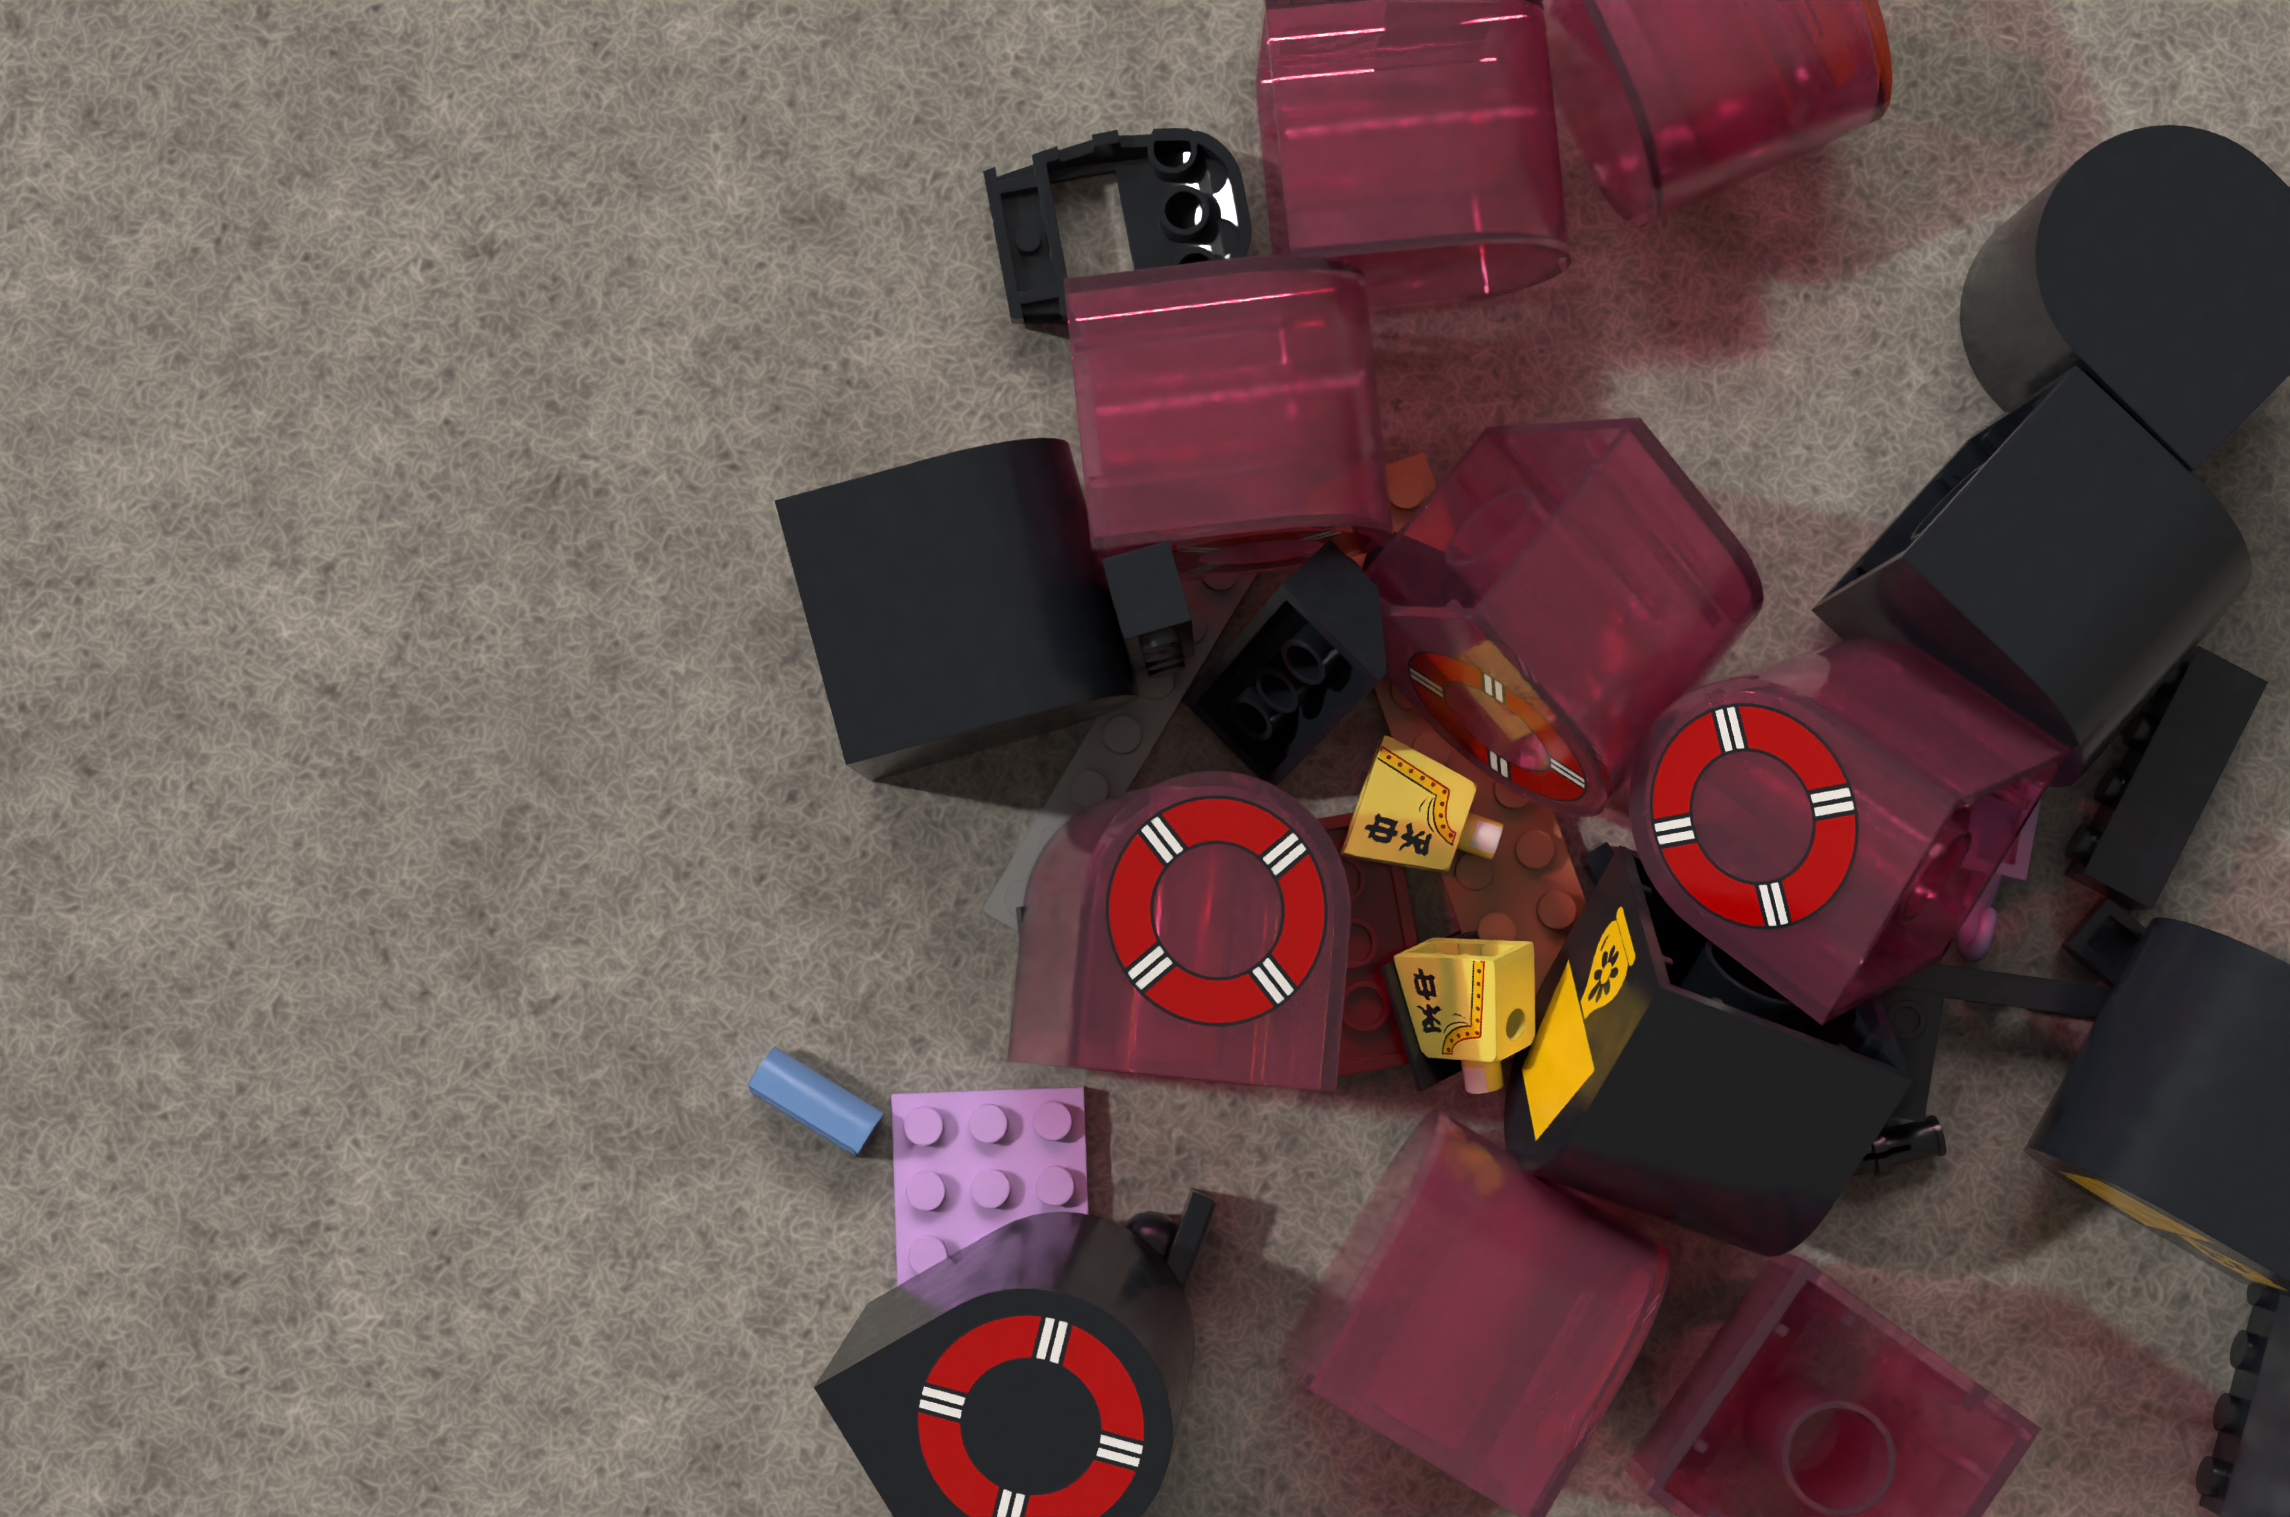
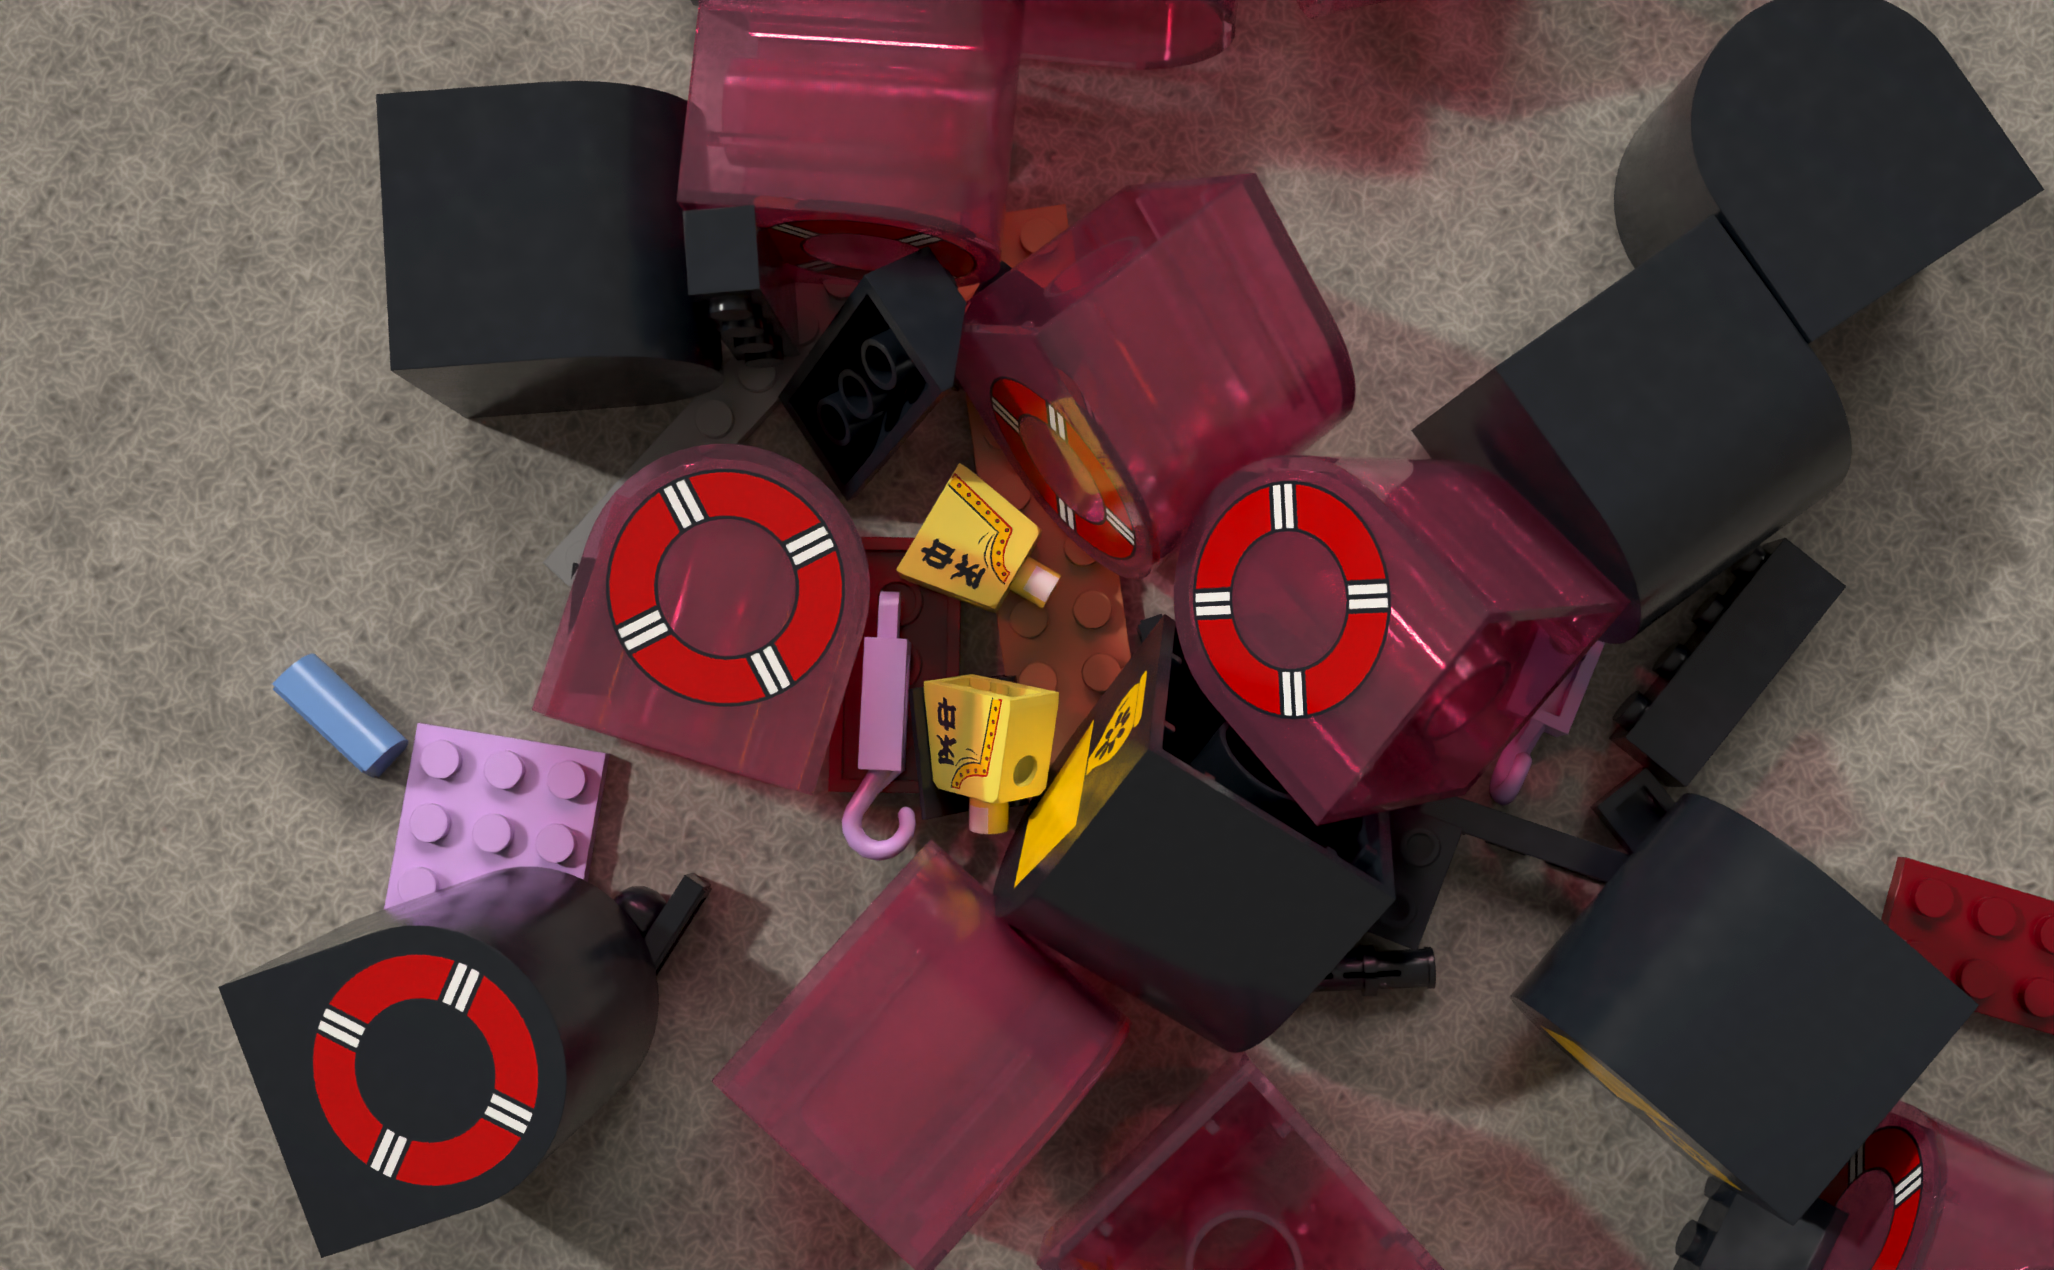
camera: 15 degrees right, 0 degrees up
(1365, 1035) = (882, 731): none -> lavender piece

